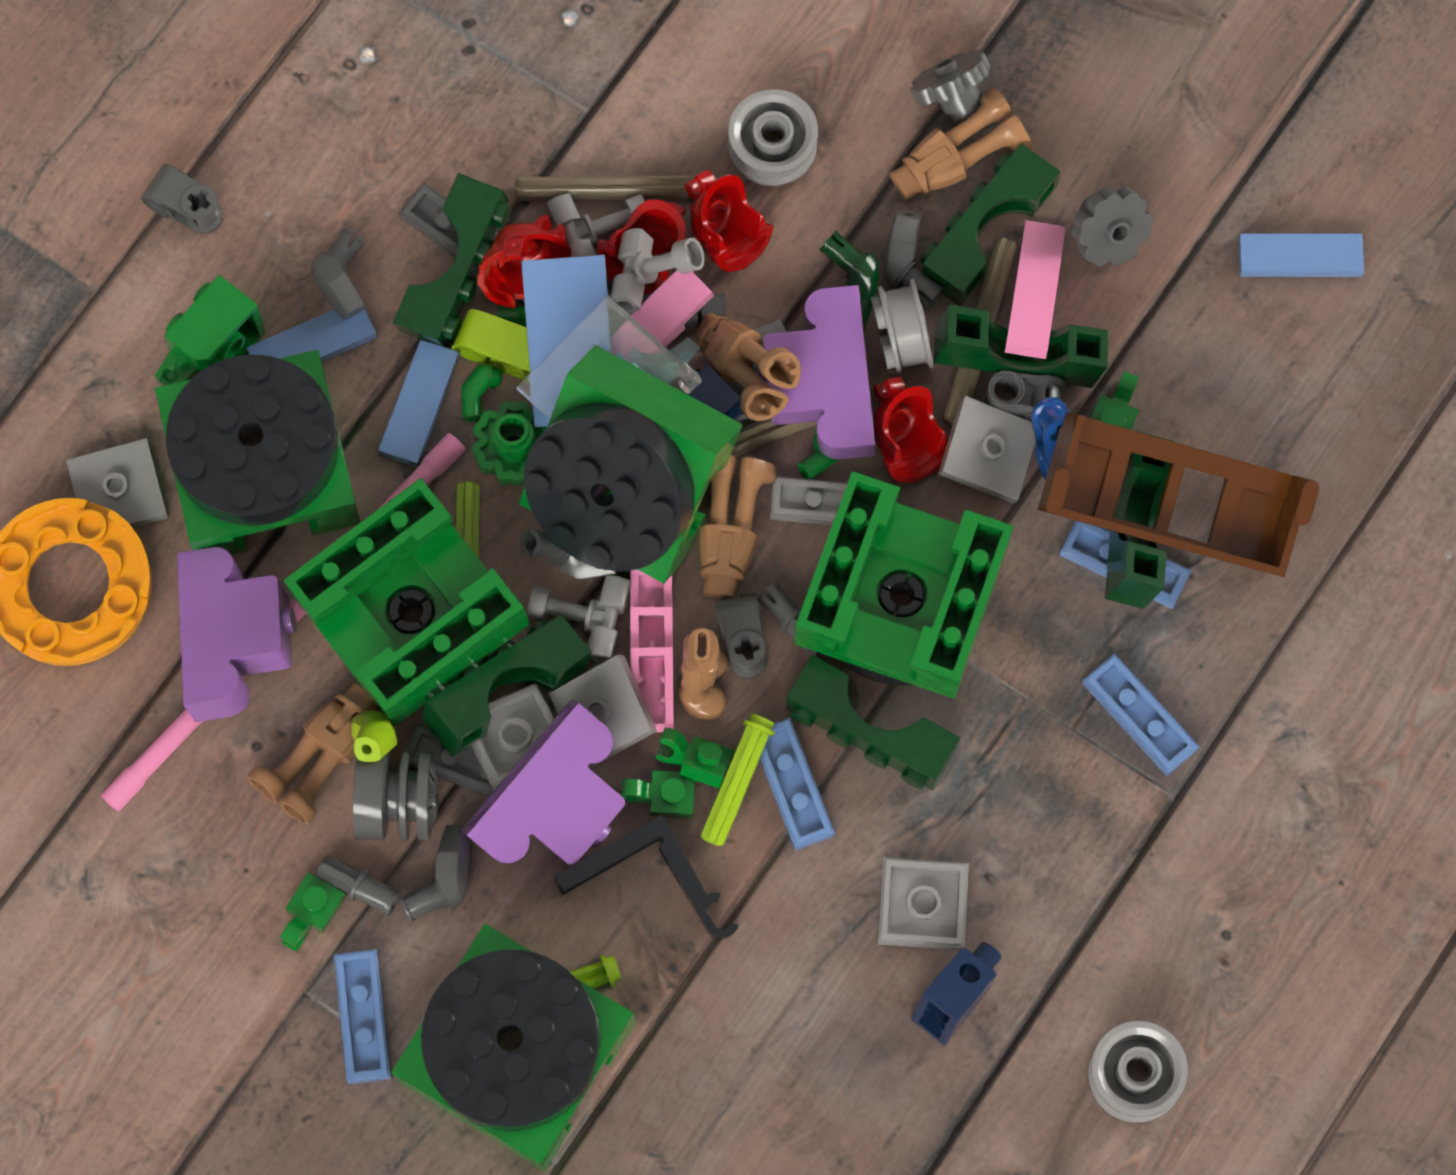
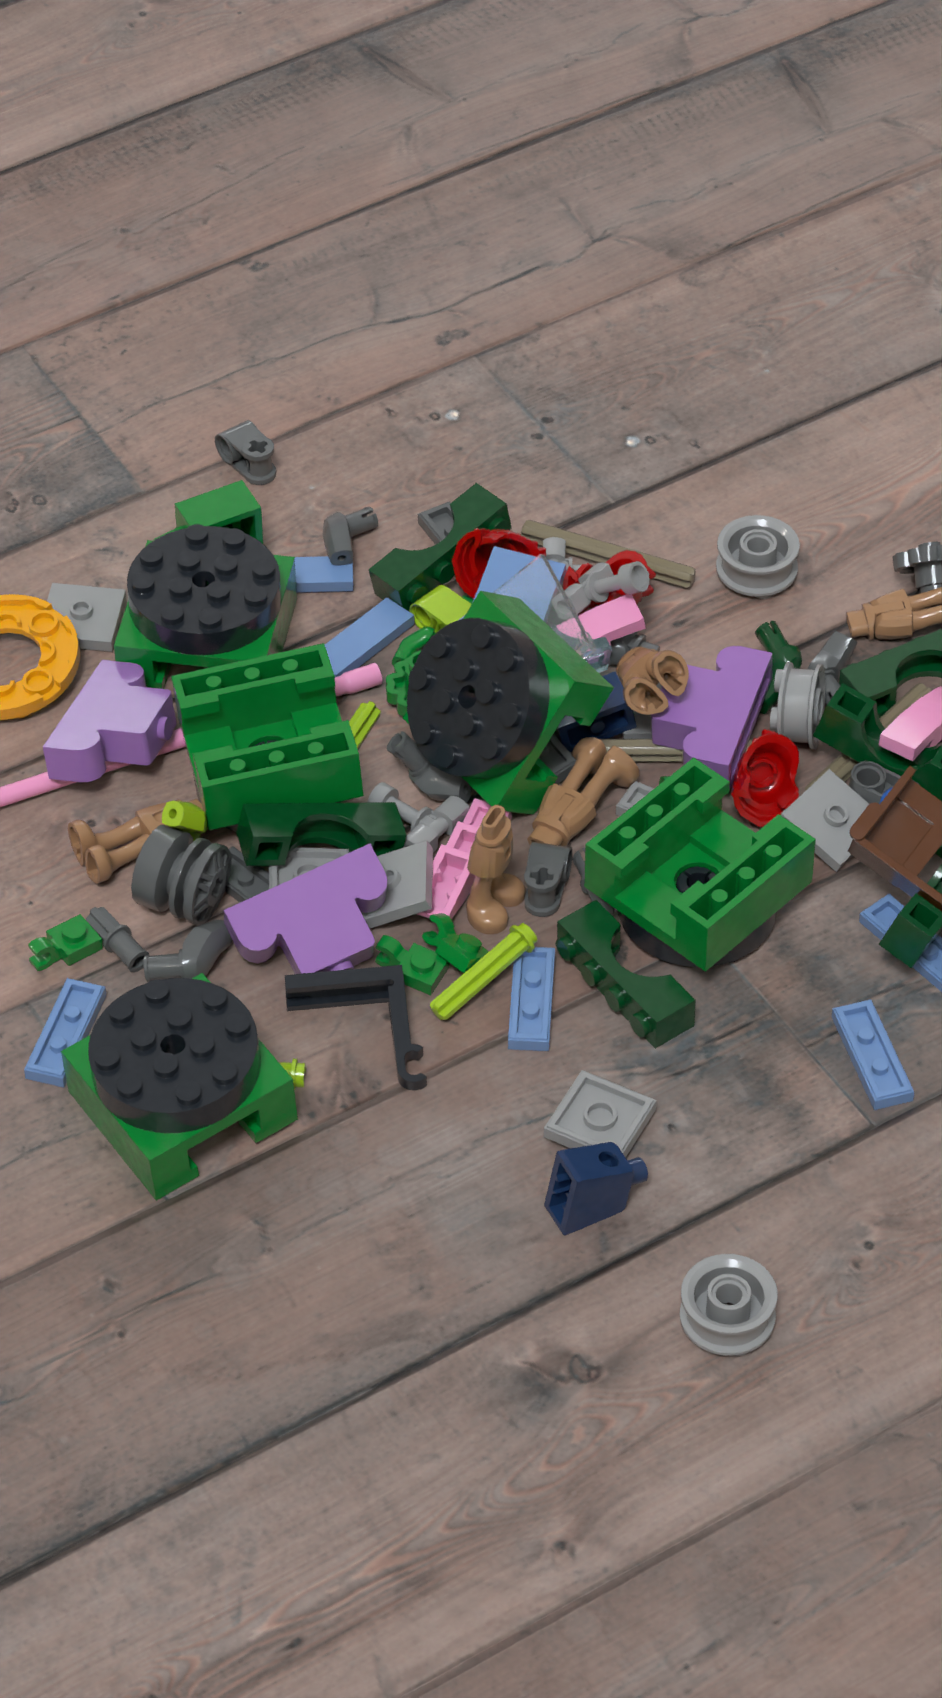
camera: 25 degrees right, 25 degrees down
(726, 222) = (687, 595): red helmet -> none

